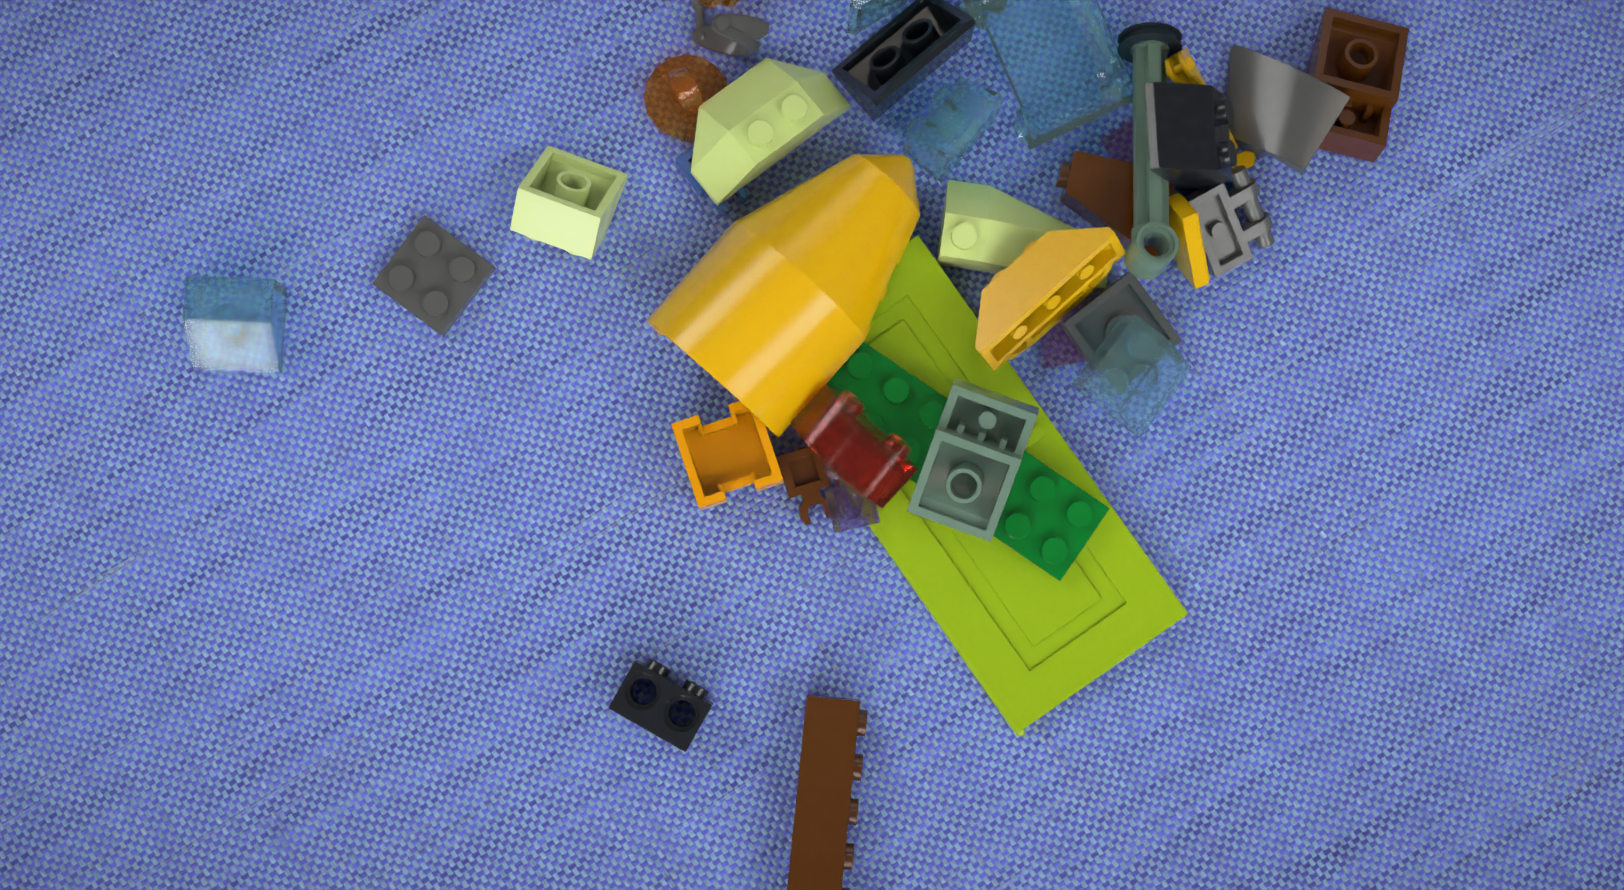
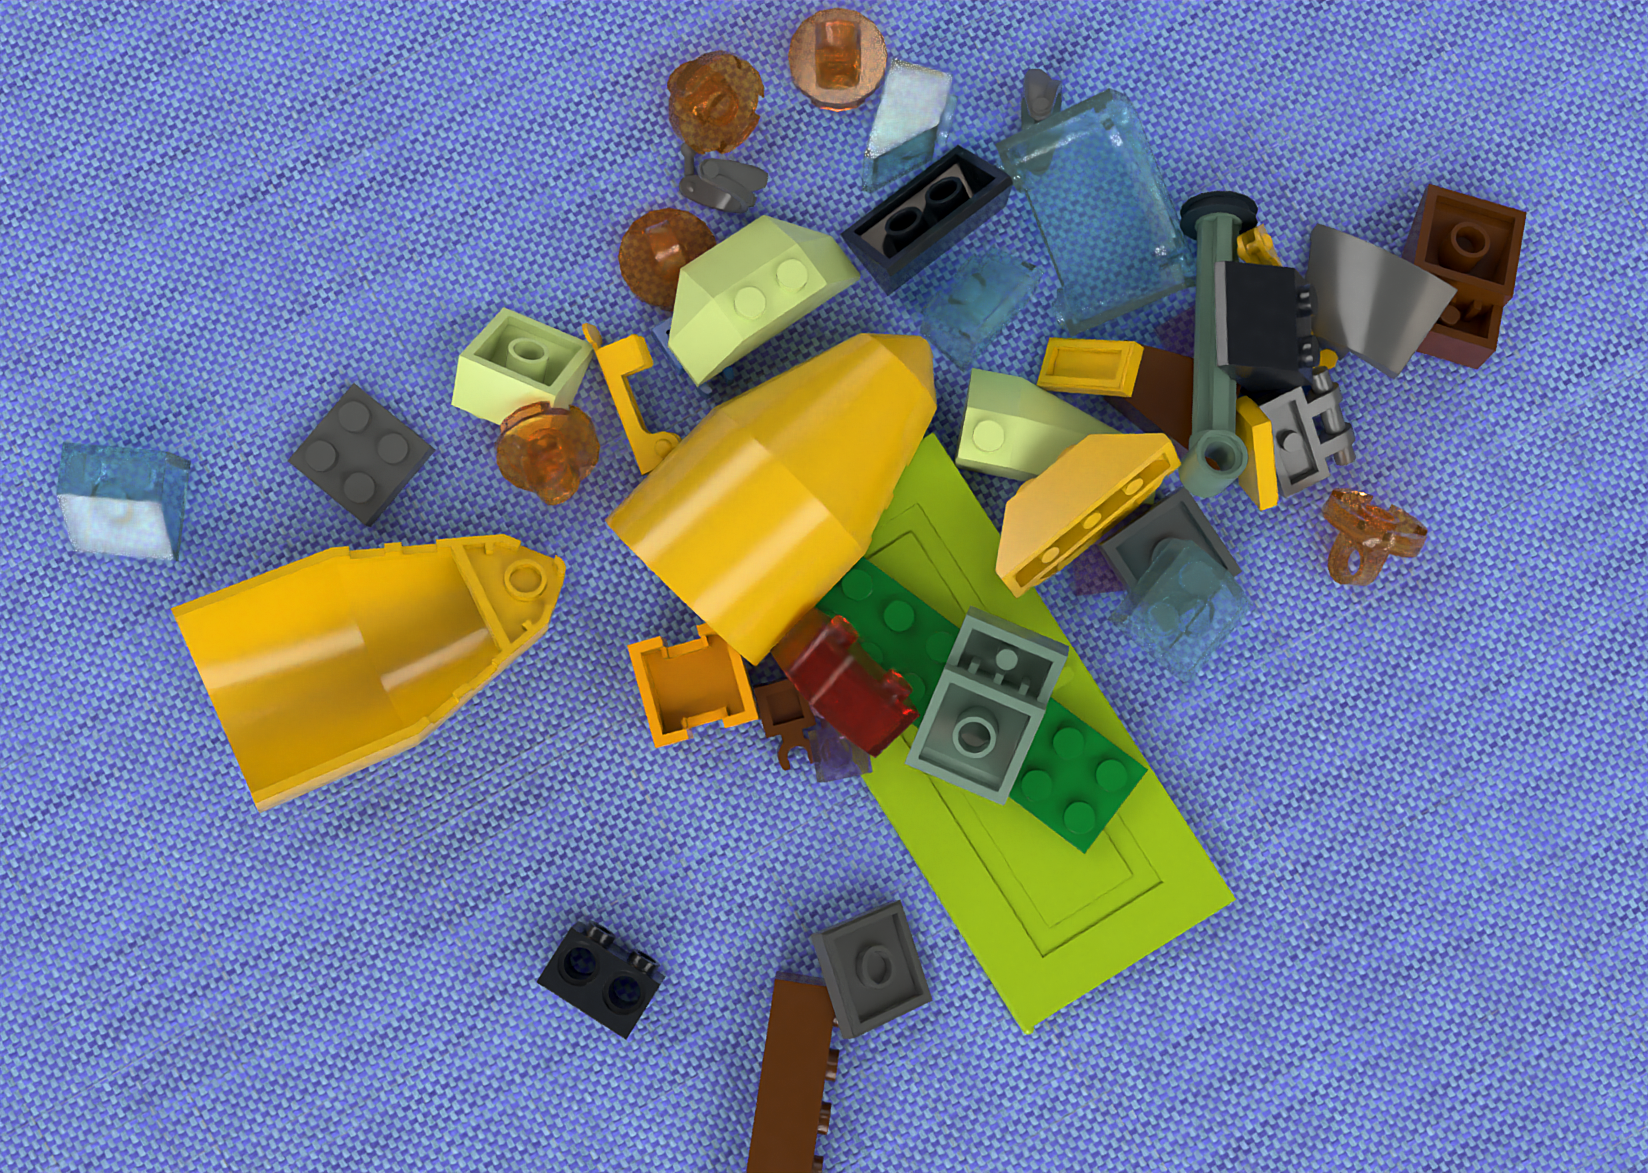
camera: 10 degrees right, 0 degrees up
(448, 439) = (361, 651): none -> yellow windscreen
(594, 264) = (547, 450): none -> clear orange tile
(648, 188) = (617, 363): none -> yellow piece
(887, 684) = (871, 968): none -> dark grey plate
(1047, 174) = (1090, 366): none -> yellow tile
(1288, 303) = (1370, 532): none -> clear orange tile

